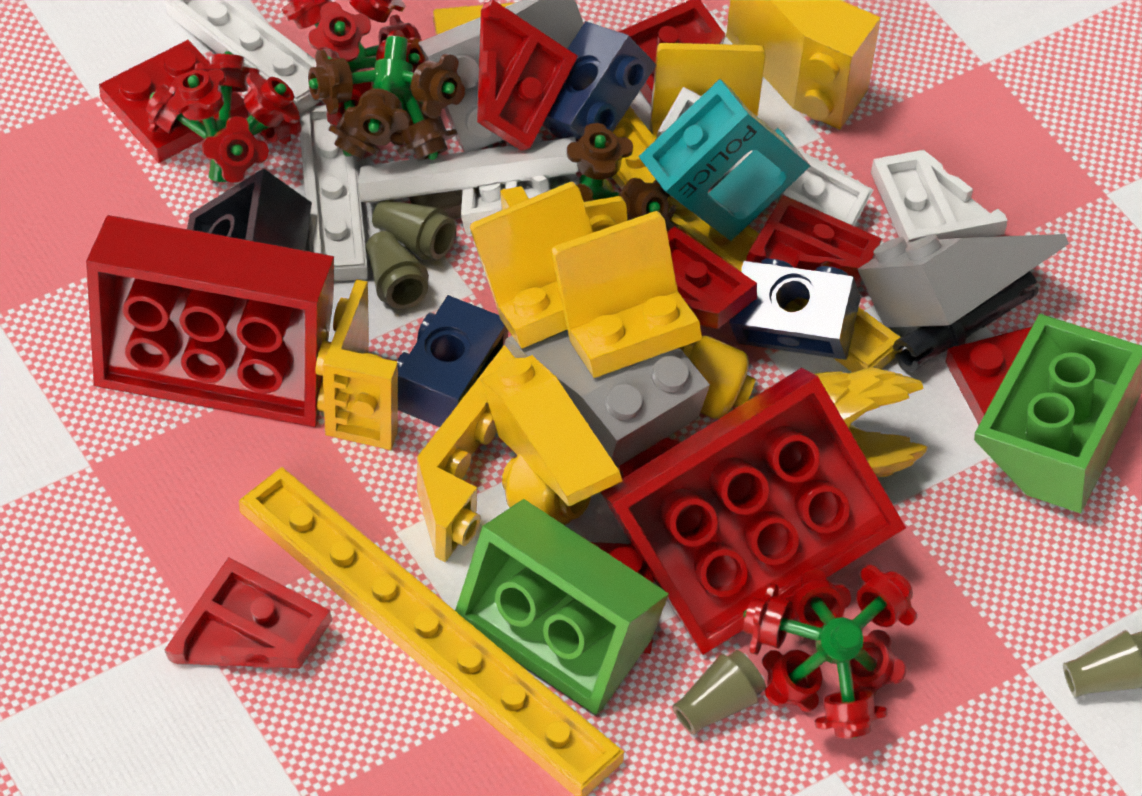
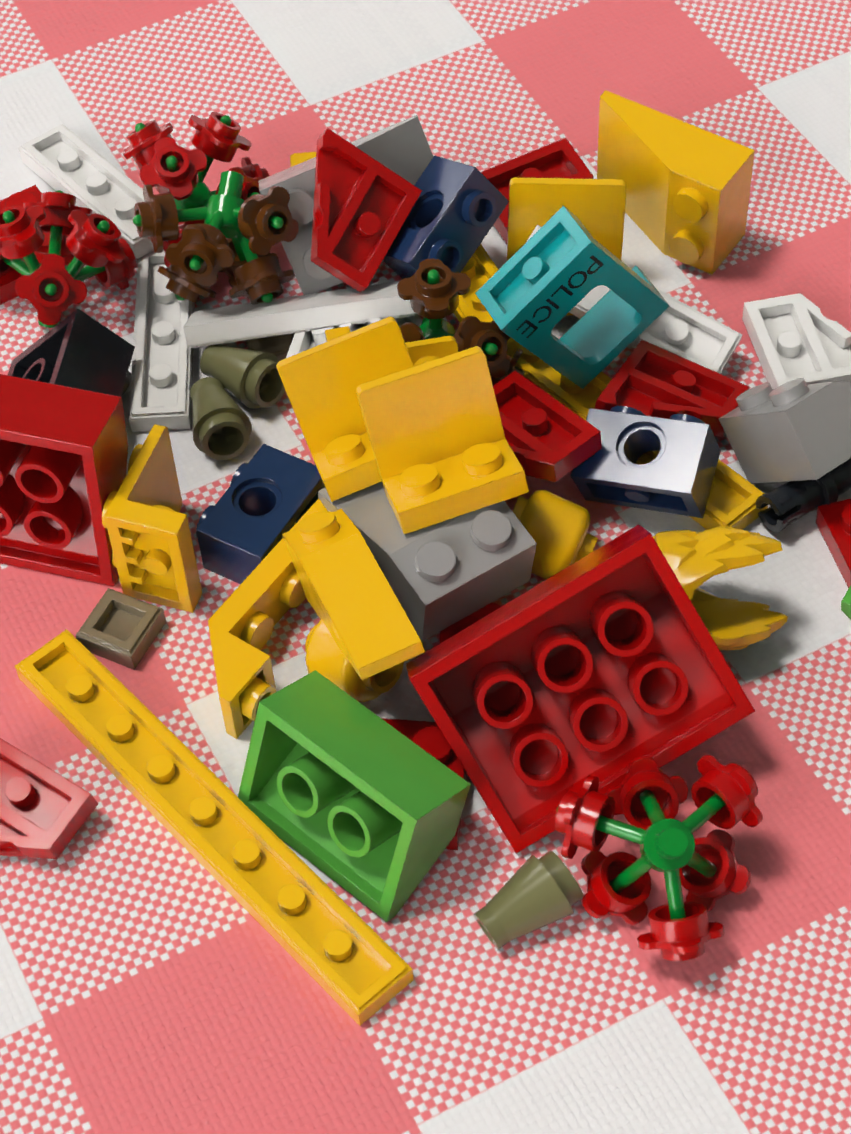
camera: 10 degrees right, 0 degrees up
(330, 465) = (121, 628): none -> dark tan tile

